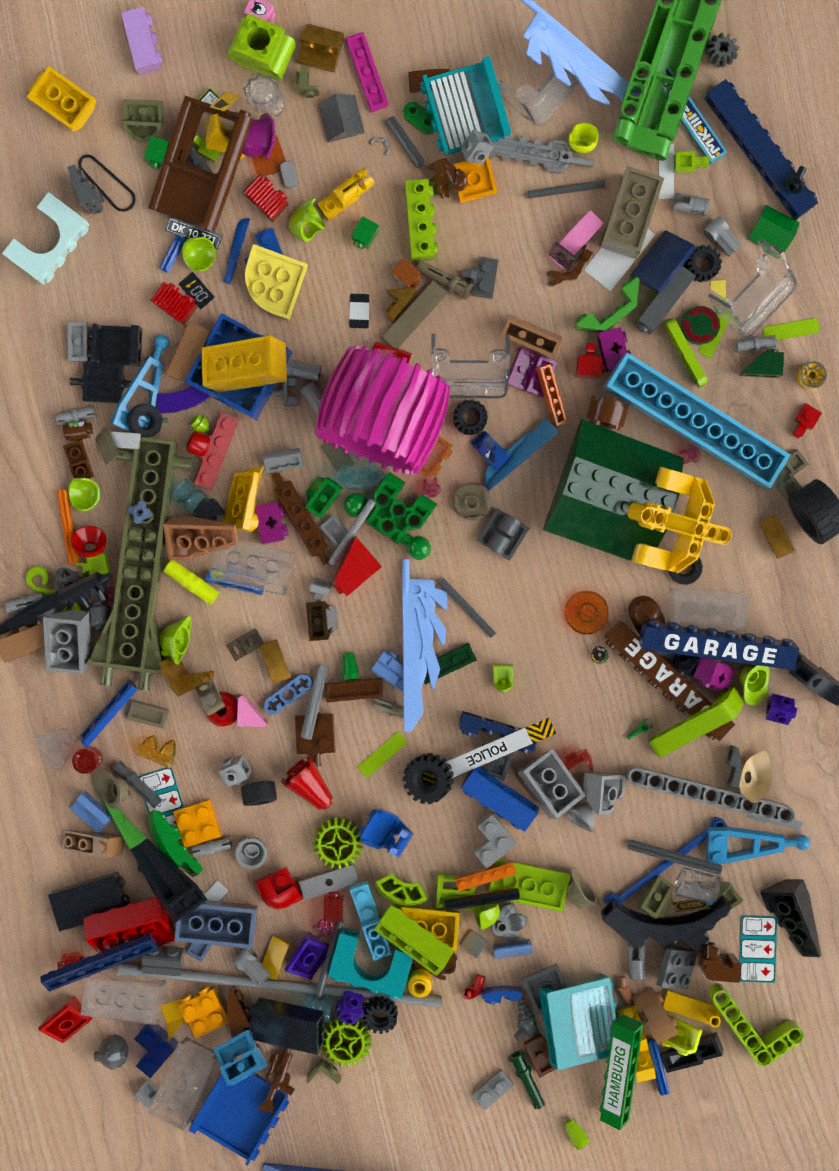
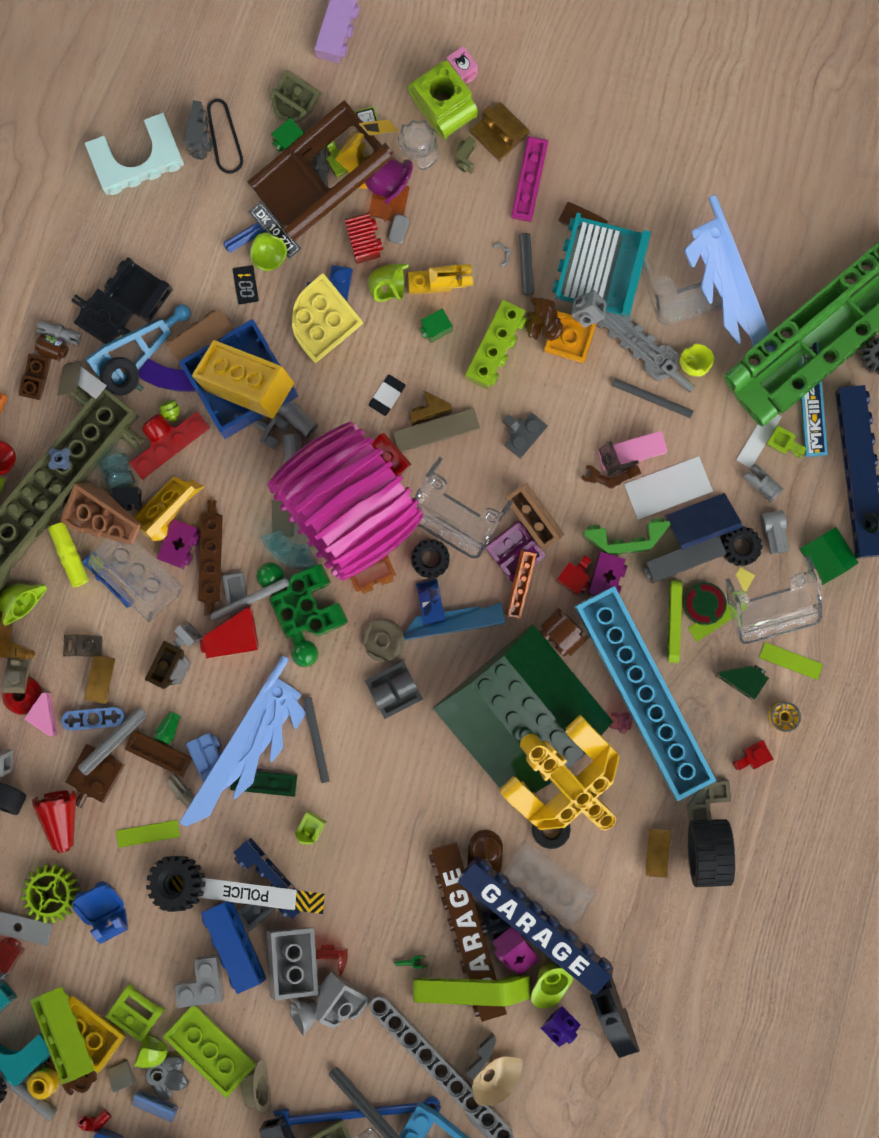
camera: 30 degrees right, 5 degrees down
(61, 99) = (229, 36): yellow slope -> none
(78, 341) = (104, 265): light grey plate -> none
(83, 494) = (19, 410): lime helmet -> none
(174, 303) = (216, 284): red brick -> none
(236, 248) = (307, 267): blue piece -> none
(282, 460) = (226, 492): light grey plate -> none
(322, 495) = (243, 548): green slope -> none
(340, 117) = (479, 205): dark grey slope -> none
(369, 917) = (36, 984): medium azure slope -> none
(400, 893) = (79, 980): lime brick -> none
(406, 274) = (452, 387): dark orange brick -> none
(418, 119) = (552, 249): green plate -> none
(431, 490) = (350, 605): clear pink plate -> none
(453, 283) = (491, 422): dark tan pin -> none
(482, 899) = (154, 1036): black axle -> none
(485, 875) = (172, 1014): orange piece -> none
(586, 612) = (428, 815): clear orange hat -> none
(599, 654) = (416, 863): tile -> none
(631, 212) = (700, 456): dark tan piece -> none
(756, 343) = (748, 653): light grey pin -> none

